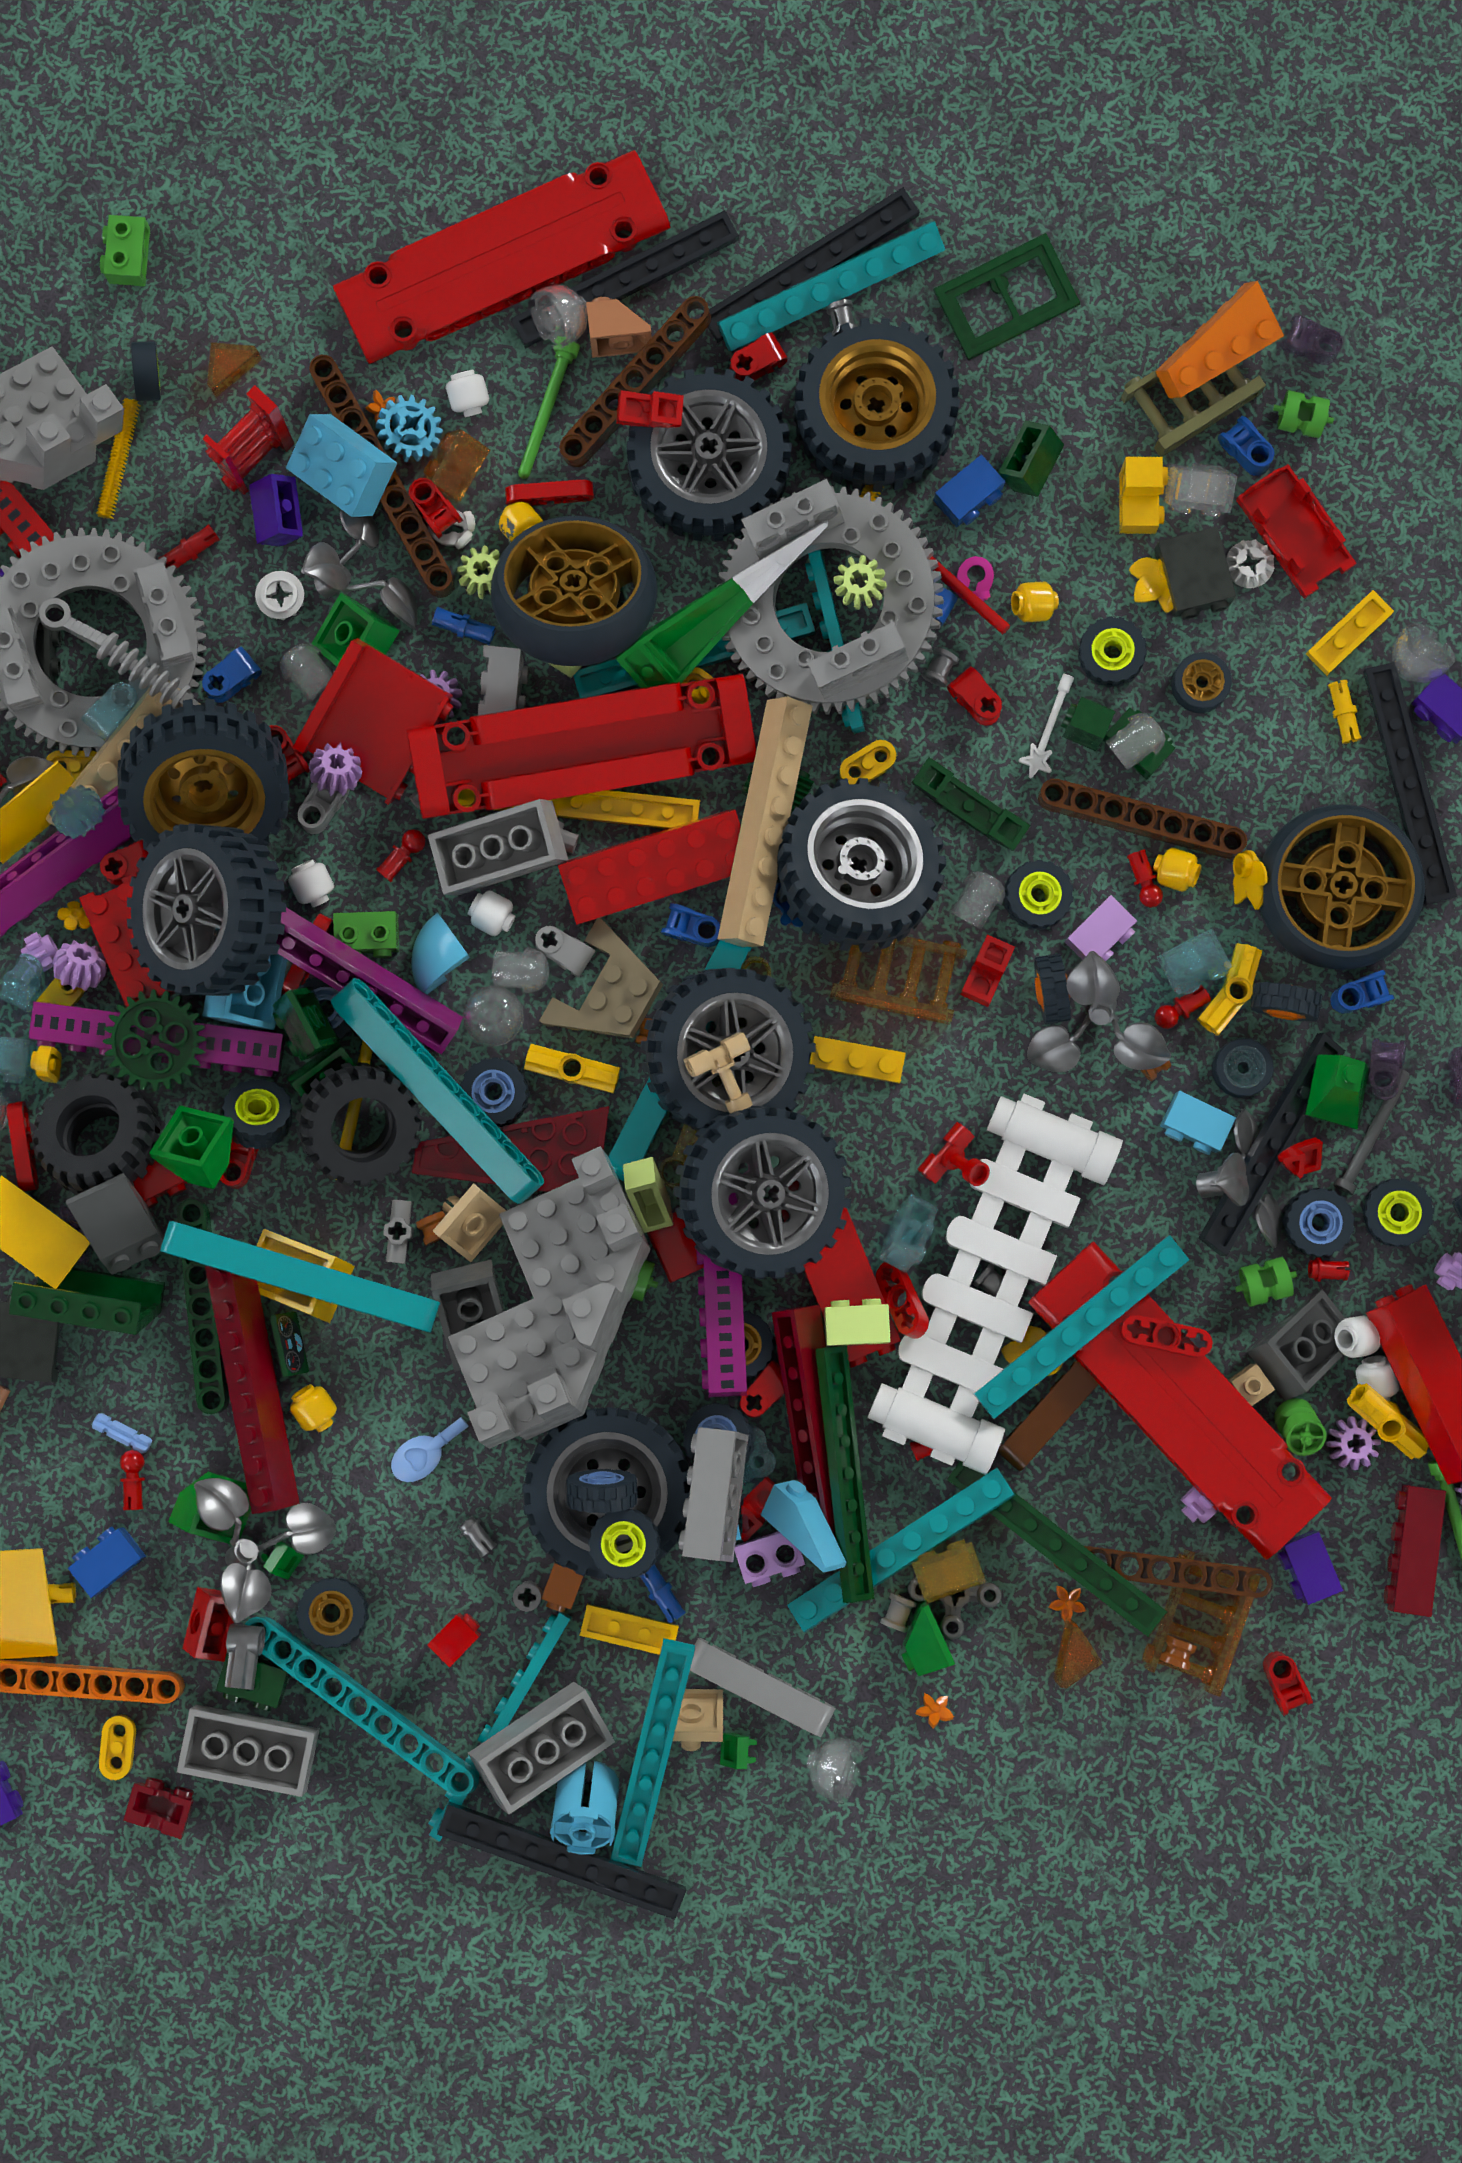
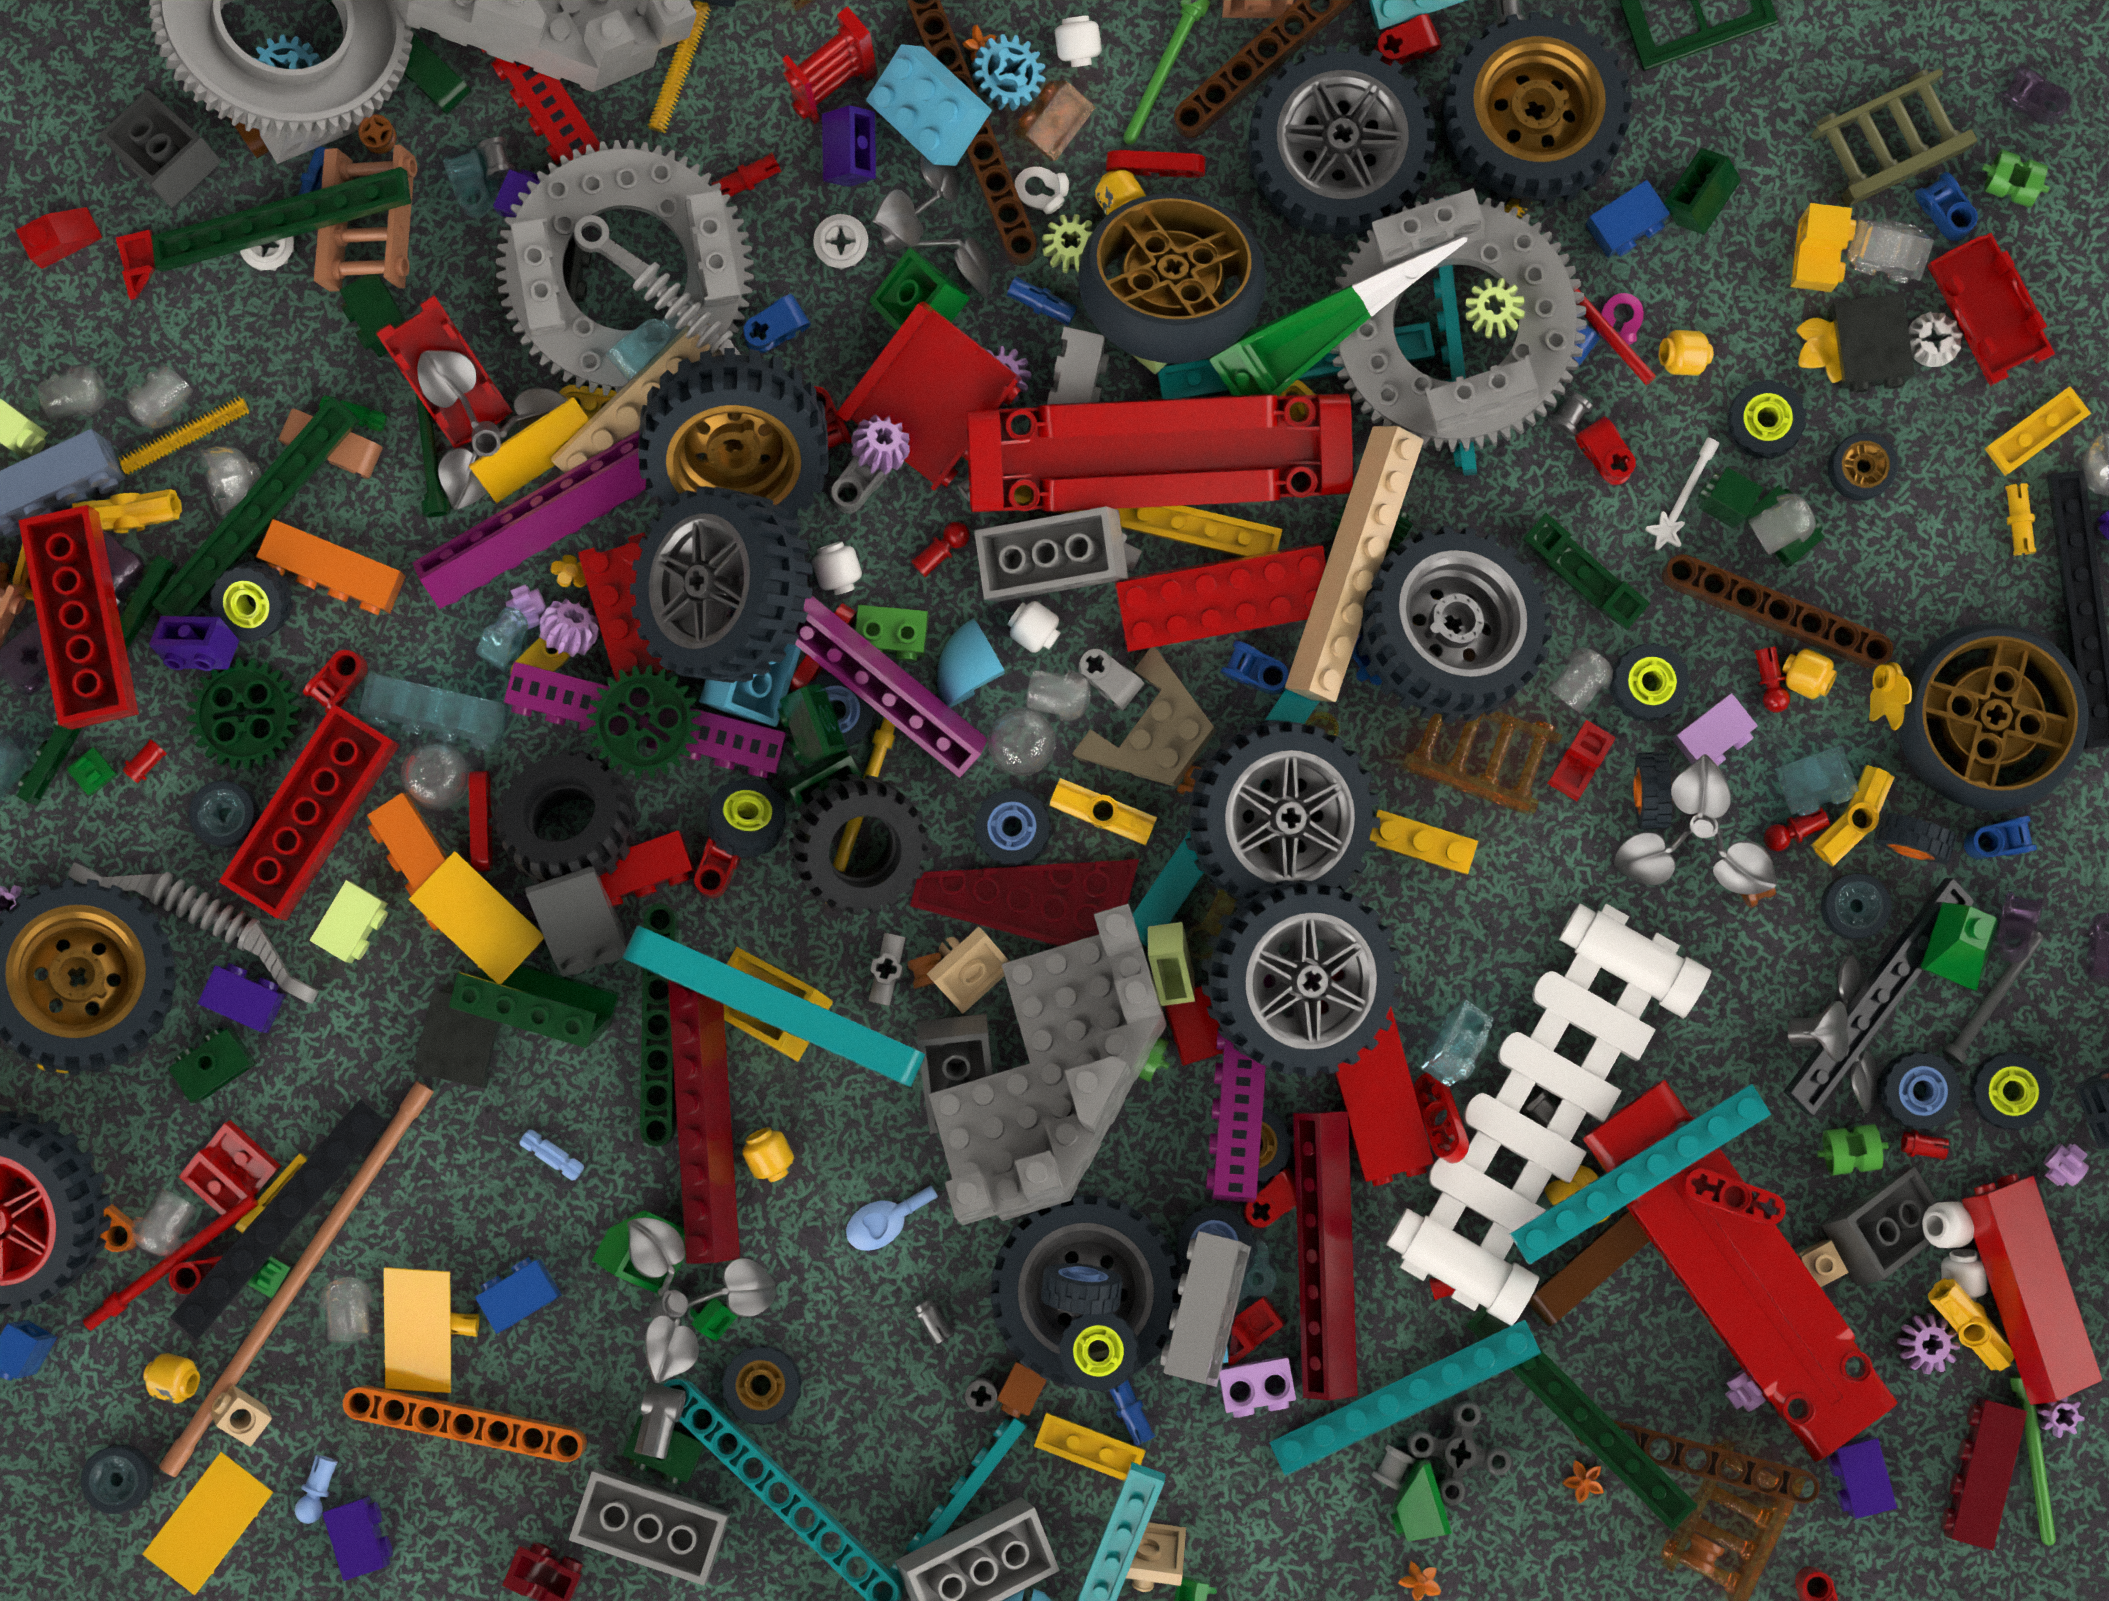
camera: 15 degrees right, 0 degrees up
(47, 1063) = (519, 732): yellow plate -> none
(77, 811) = (588, 456): clear light blue gear -> none
(117, 1746) = (504, 1502): yellow plate -> none
(126, 859) = (638, 517): red piece -> none
(132, 1463) = (558, 1189): red pin -> none
(195, 1146) = (674, 845): green slope -> none
(208, 1626) = (623, 1381): red brick -> none
(289, 1344) = (750, 1079): slope -> none
(305, 669) = (860, 329): clear piece -> none
(435, 510) = (1027, 168): red piece -> none
(437, 1091) = (951, 818): teal beam -> none
(455, 1638) = (895, 1431): red slope -> none
(648, 410) = (1282, 86): red slope -> none
(719, 1061) = (1272, 826): tan bar -> none
(761, 1689) = (1231, 1532): light grey beam -> none
(802, 1523) = (1300, 1353): medium azure slope -> none
(845, 1473) = (1353, 1305): dark green plate -> none
(857, 1324) = (1388, 1138): yellowish green piece -> none
(866, 763) = (1474, 511): yellow plate -> none
(948, 1571) = (1456, 1428): clear yellow brick -> none
(953, 1157) = (1517, 965): red bar -> none
(1075, 1656) = (1585, 1542): clear orange slope -> none
(1197, 1123) = (1796, 961): medium azure brick -> none
(1227, 338) = (1943, 82): orange wedge -> none
(1300, 1427) = (1871, 1317): bright green wheel -> none
(1302, 1157) = (1911, 1015): red slope -> none

